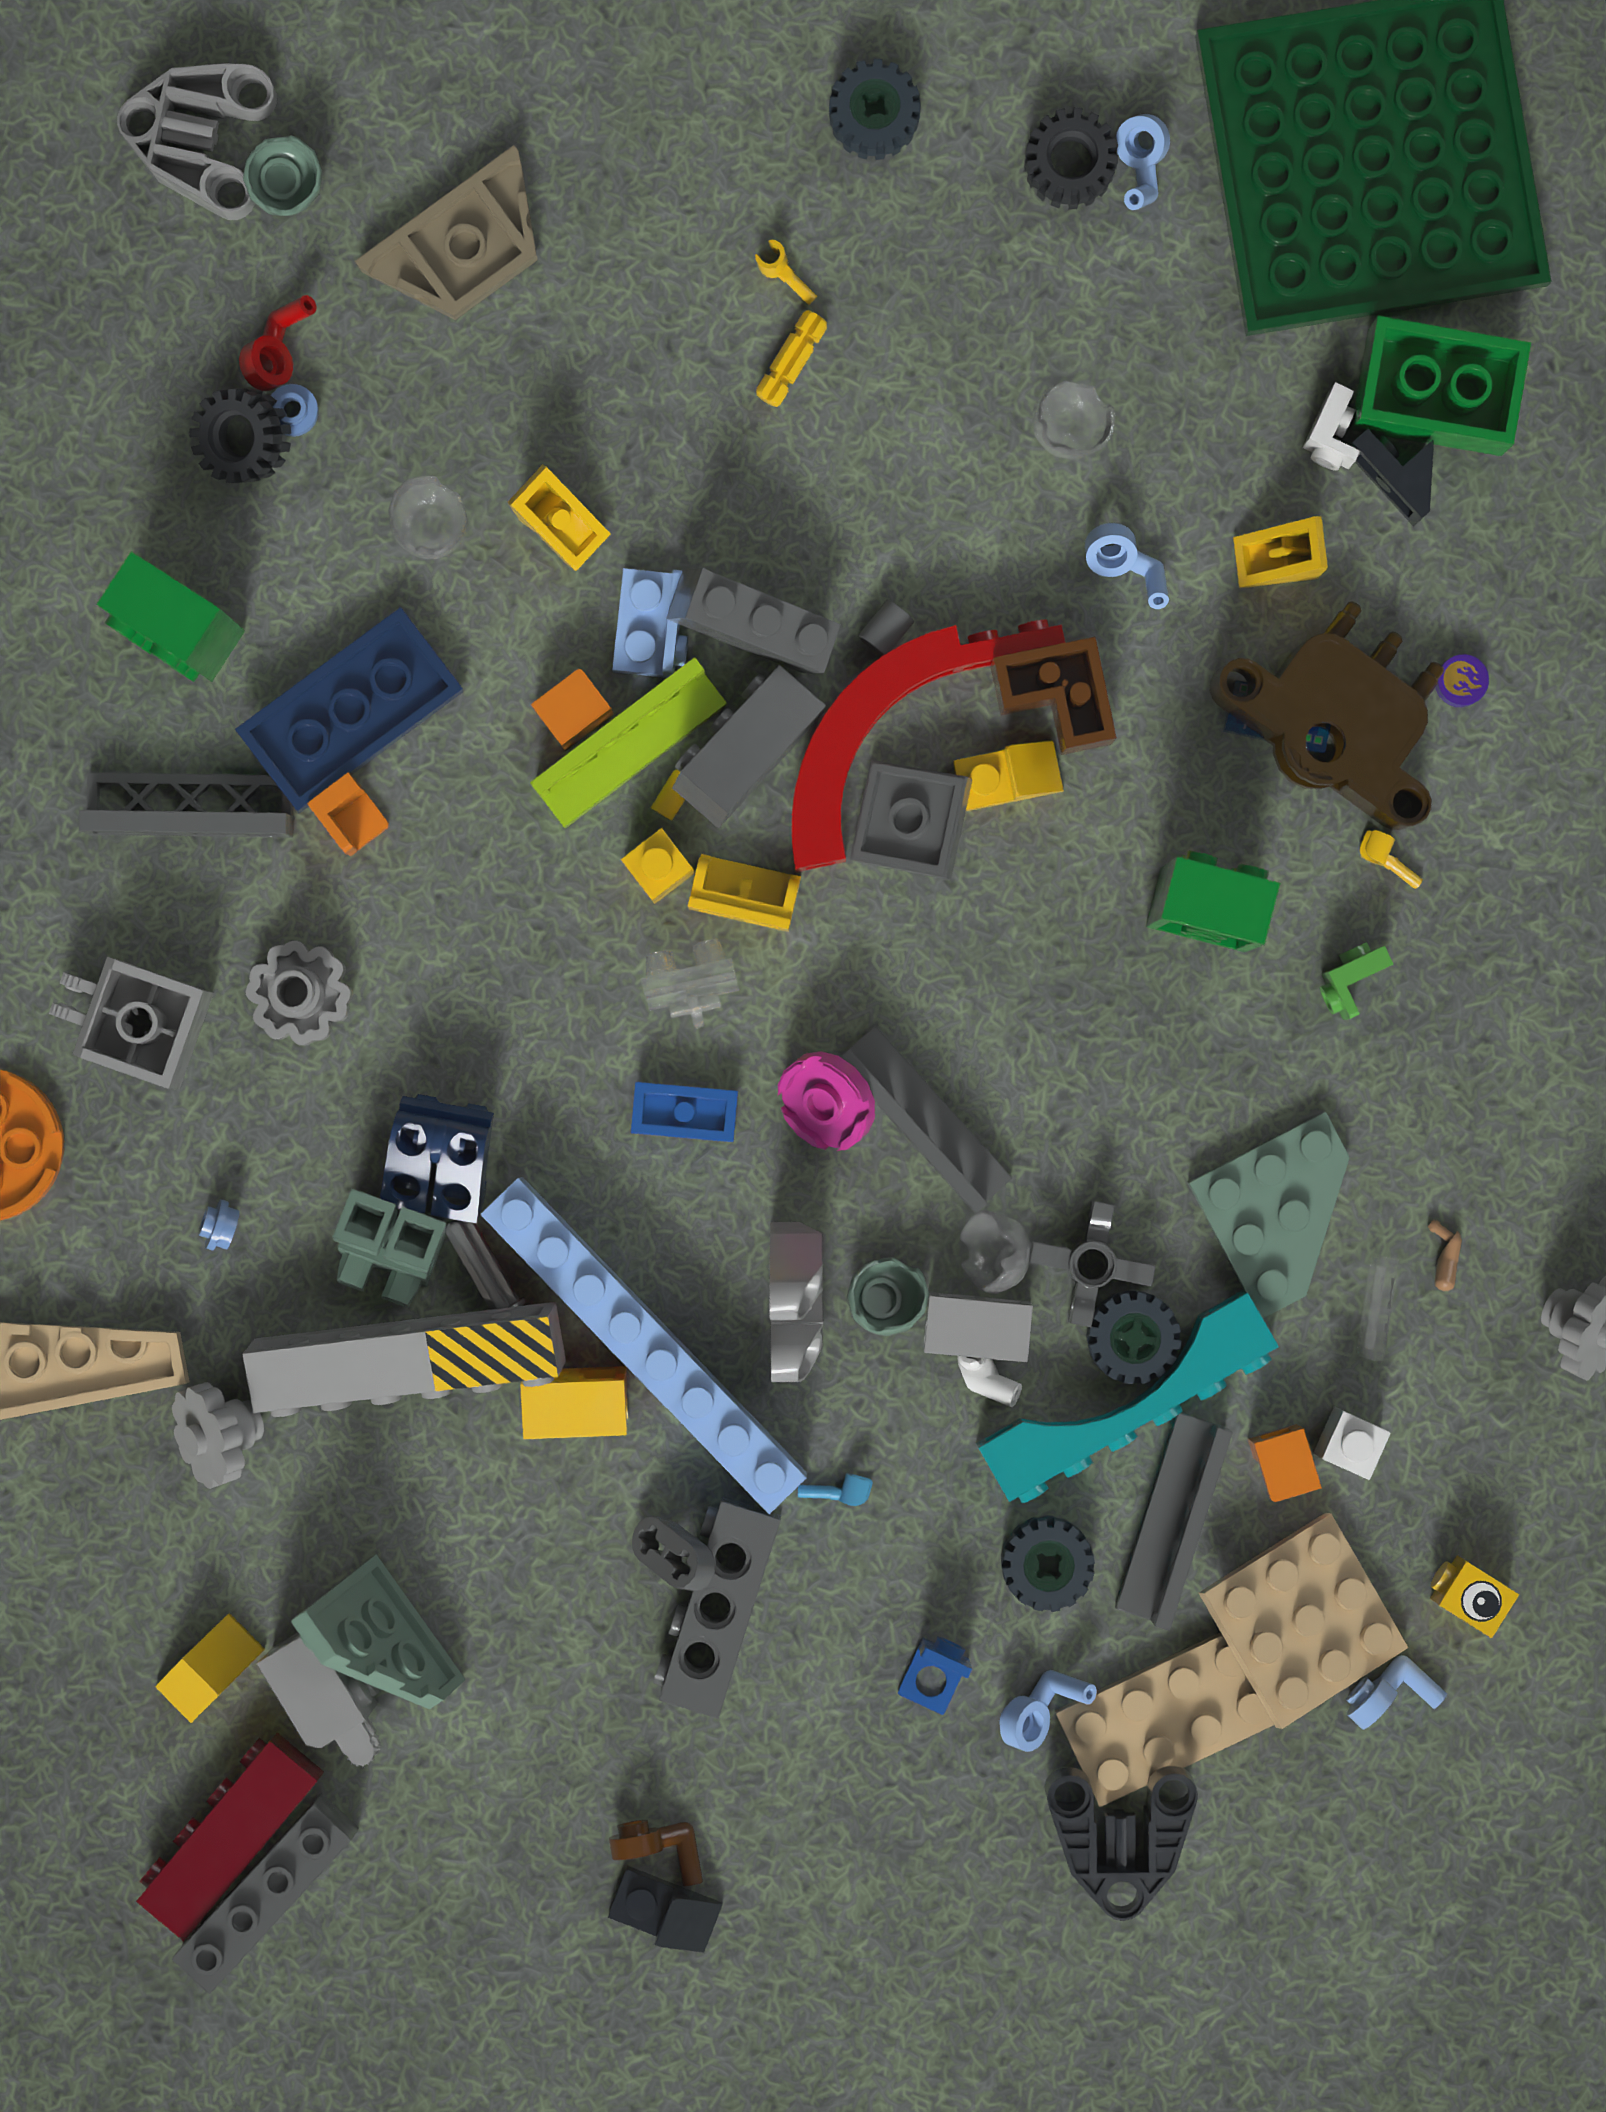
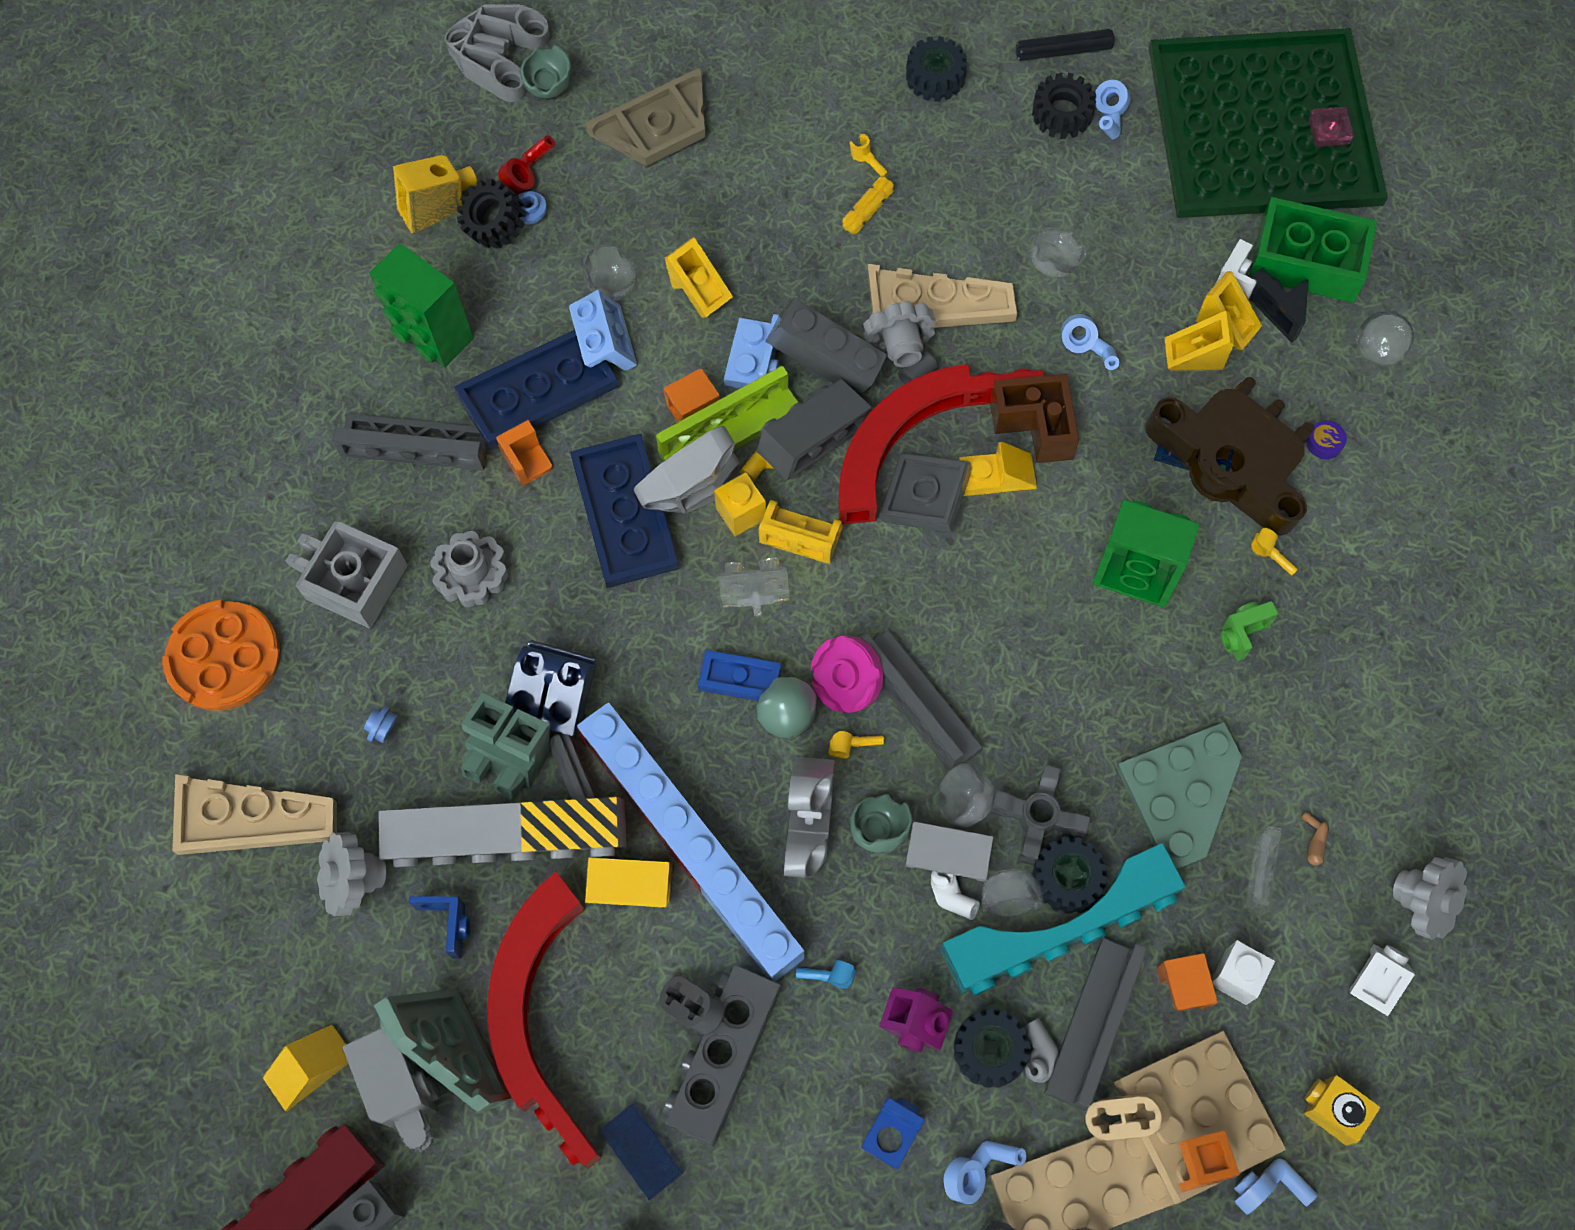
camera: 10 degrees right, 20 degrees down
(133, 416) = (429, 190): none -> yellow torso
(366, 1477) = (458, 922): none -> blue bracket
(431, 615) = (602, 331): none -> light blue bracket
(449, 1587) = (510, 987): none -> red arch
(498, 884) = (627, 537): none -> dark blue plate
(587, 847) = (691, 474): none -> light grey connector
(632, 1727) = (641, 1152): none -> clear blue tile
(752, 1154) = (787, 707): none -> sand green hair
(827, 1189) = (842, 741): none -> yellow hand
(858, 587) = (901, 331): none -> light grey plant
(891, 514) = (951, 300): none -> tan wing
(952, 1542) = (916, 1019): none -> magenta brick
(1059, 1370) = (1011, 893): none -> clear hair
(1067, 42) = (1064, 44): none -> black axle
(1111, 1563) = (1043, 1055): none -> light grey arm
(1216, 1647) = (1127, 1126): none -> tan beam
(1309, 1690) = (1208, 1160): none -> orange panel
(1328, 493) = (1230, 297): none -> yellow slope
(1467, 174) = (1331, 126): none -> clear pink plate
(1527, 1428) = (1383, 978): none -> white bracket
(1545, 512) = (1385, 337): none -> clear hair

